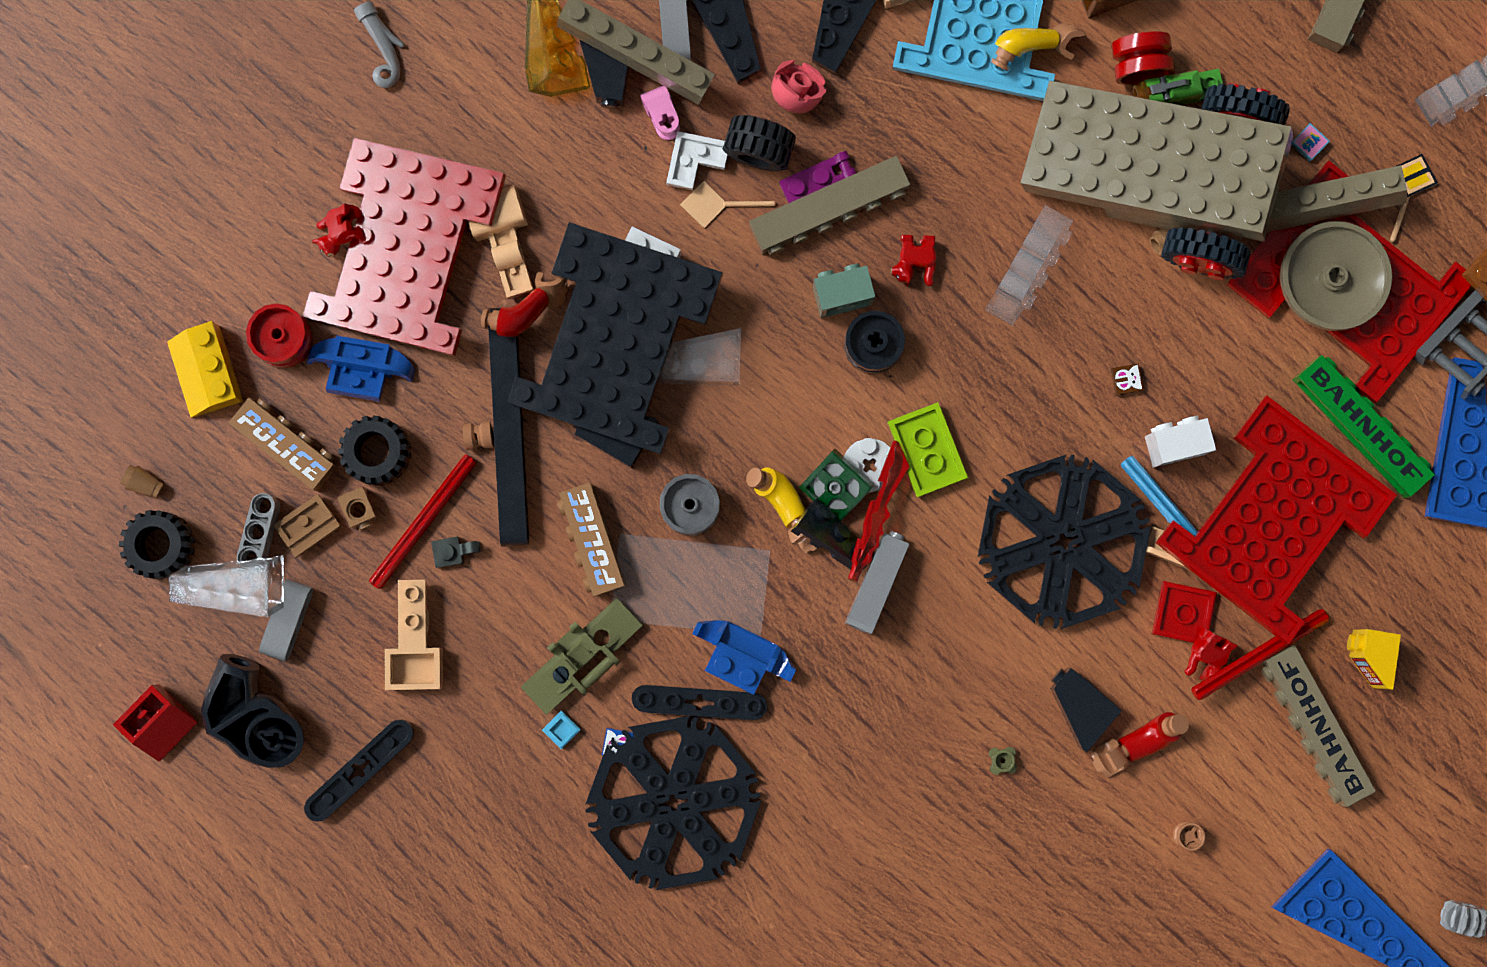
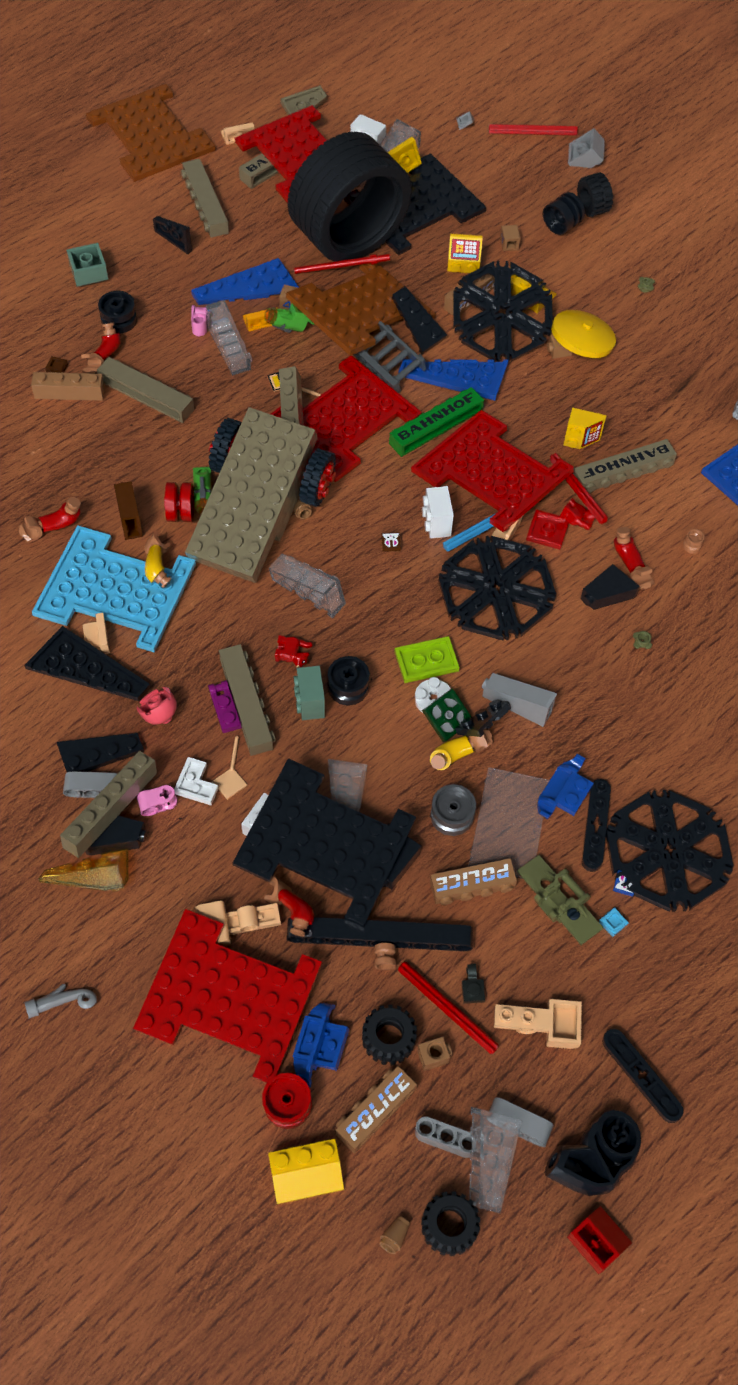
camera: 90 degrees left, 25 degrees down
(307, 525) = (444, 1097): medium nougat plate -> none
(339, 229) = (204, 1043): red animal -> none
(759, 143) = (194, 732): black tyre -> none
(877, 513) = (469, 689): red sword -> none
(1335, 276) = (341, 417): dark tan dish -> none

